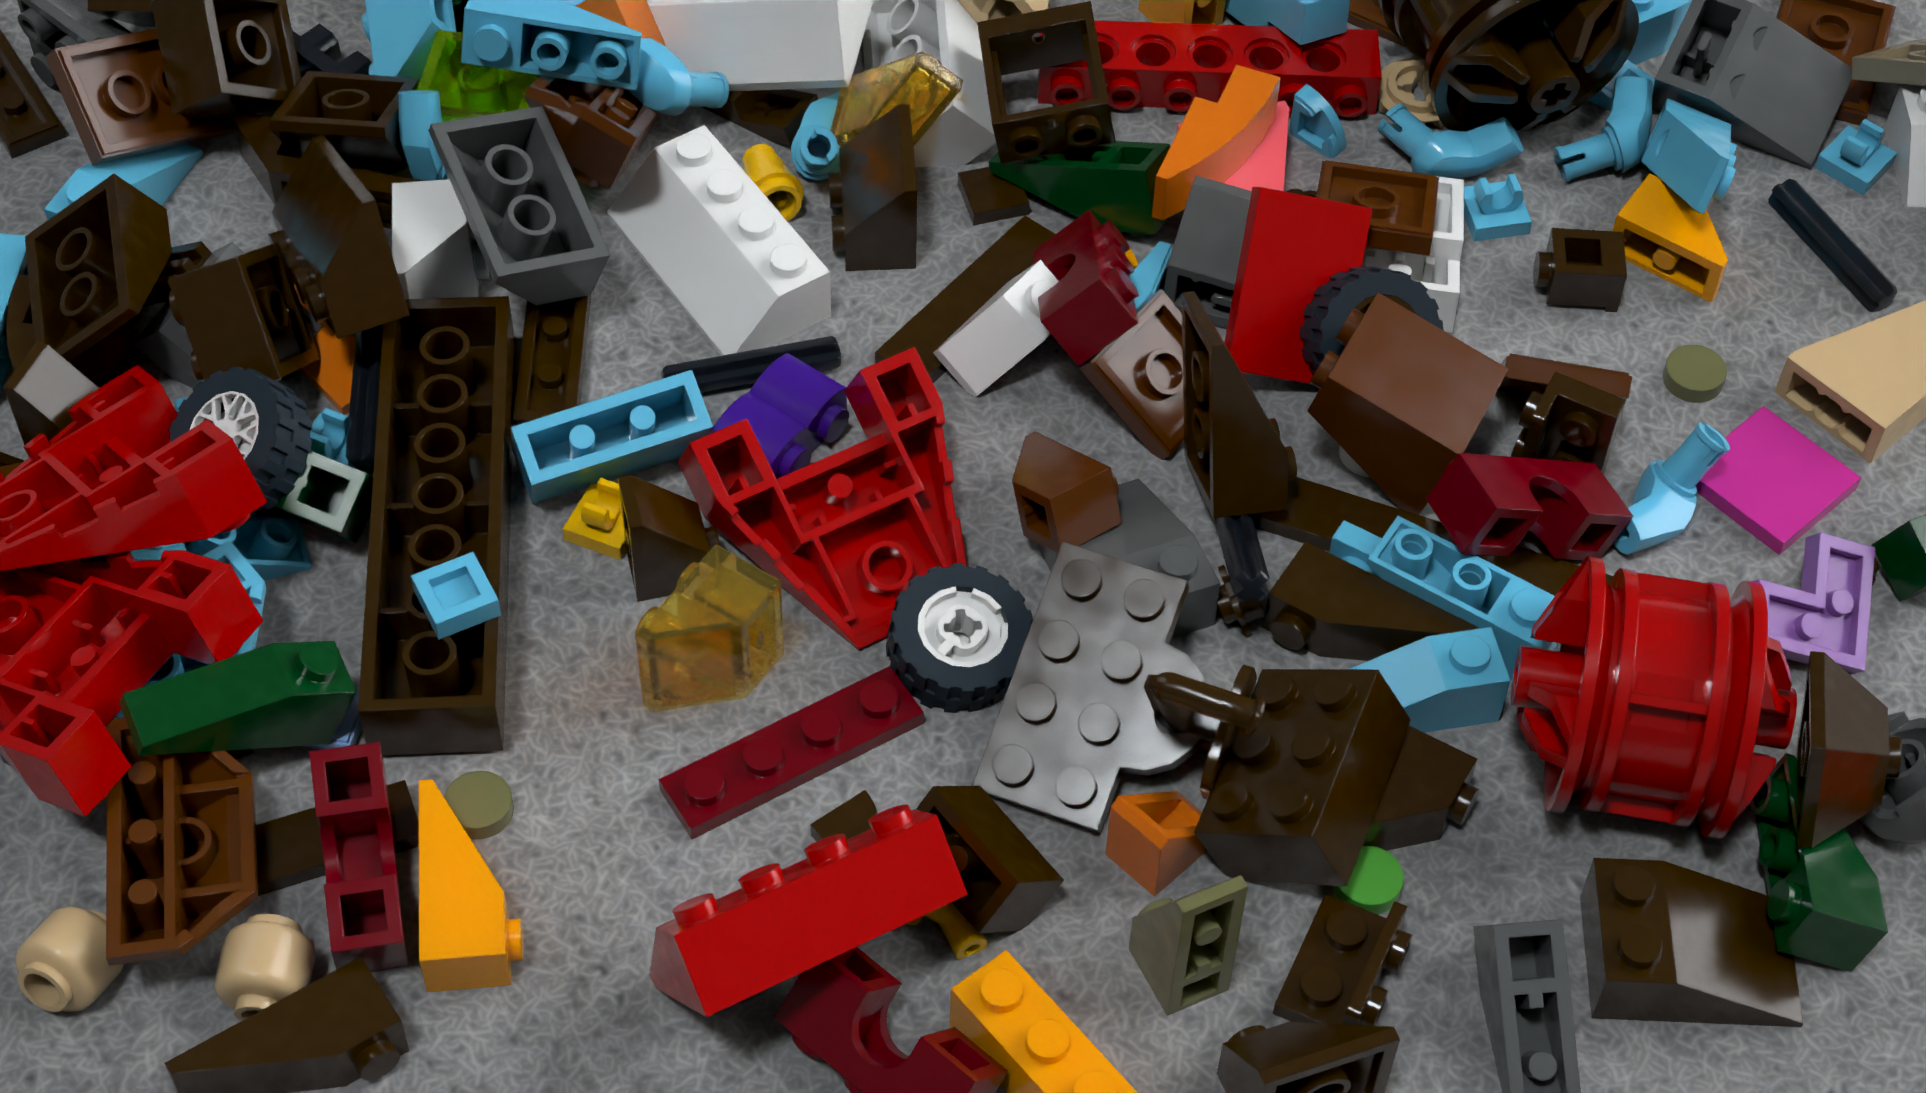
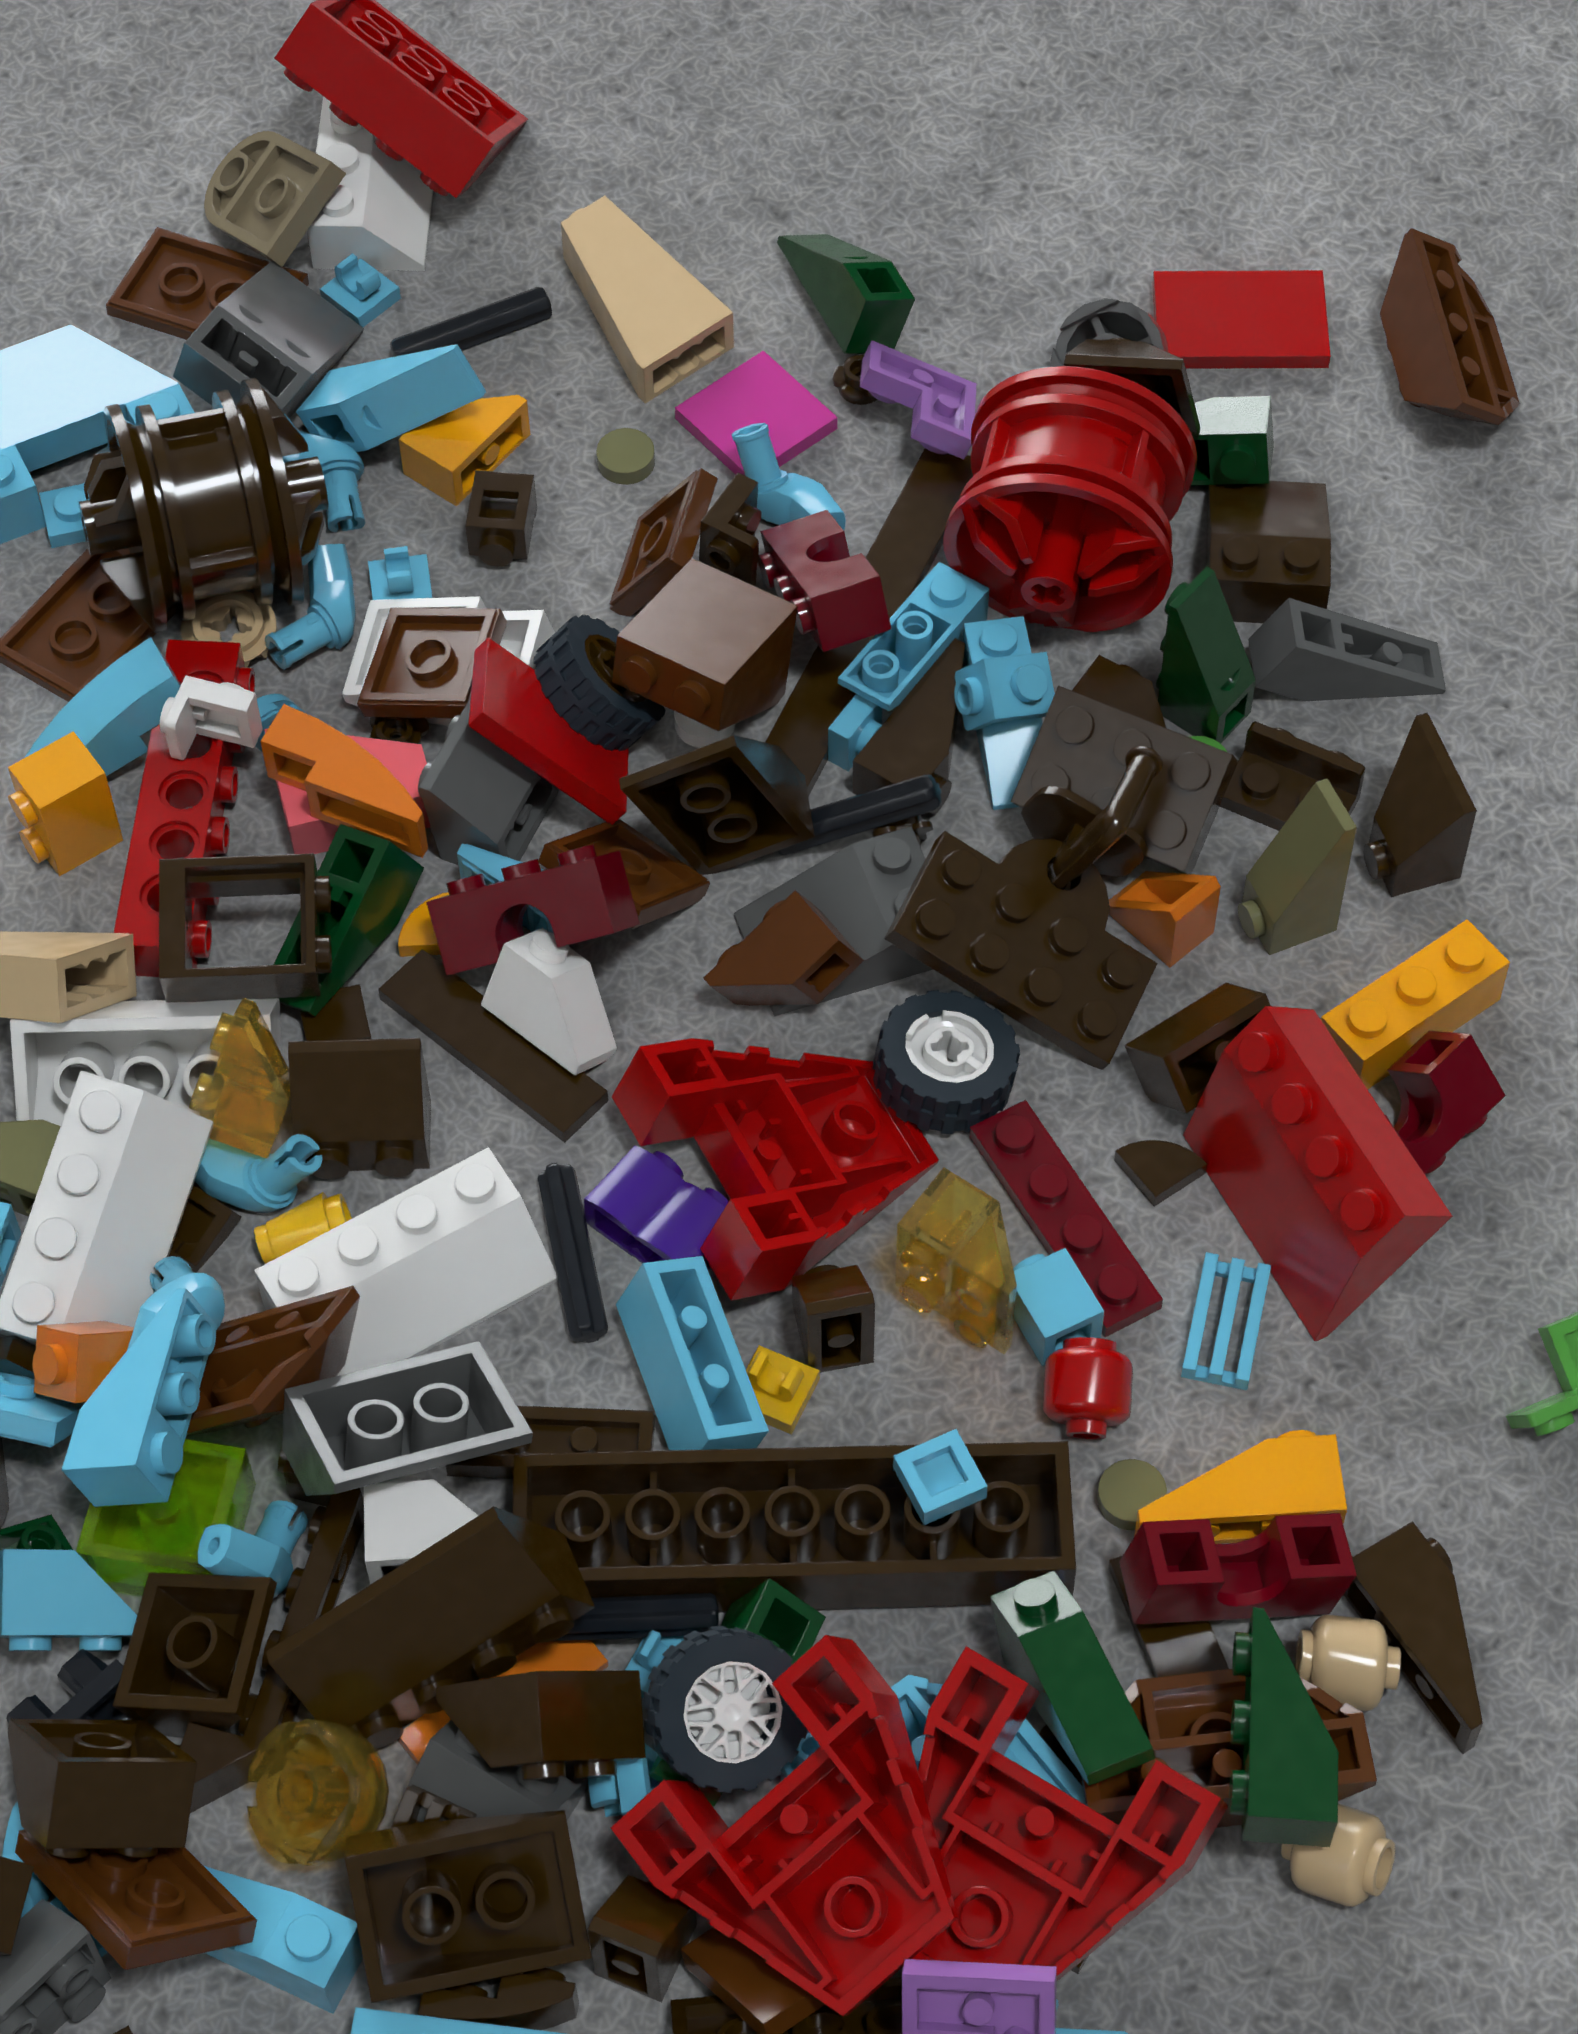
camera: 85 degrees left, 5 degrees up
(124, 858) = (1288, 1754): none -> dark green slope
(226, 209) = (315, 1790): none -> clear yellow cylinder
(587, 757) = (1088, 1387): none -> red head
(660, 864) = (1235, 1273): none -> medium azure tile
(678, 725) = (1054, 1303): none -> medium azure brick
(1276, 33) = (210, 710): none -> white bracket
(1405, 658) = (1004, 689): none -> medium azure bracket
(1467, 841) = (1205, 669): none -> dark green slope

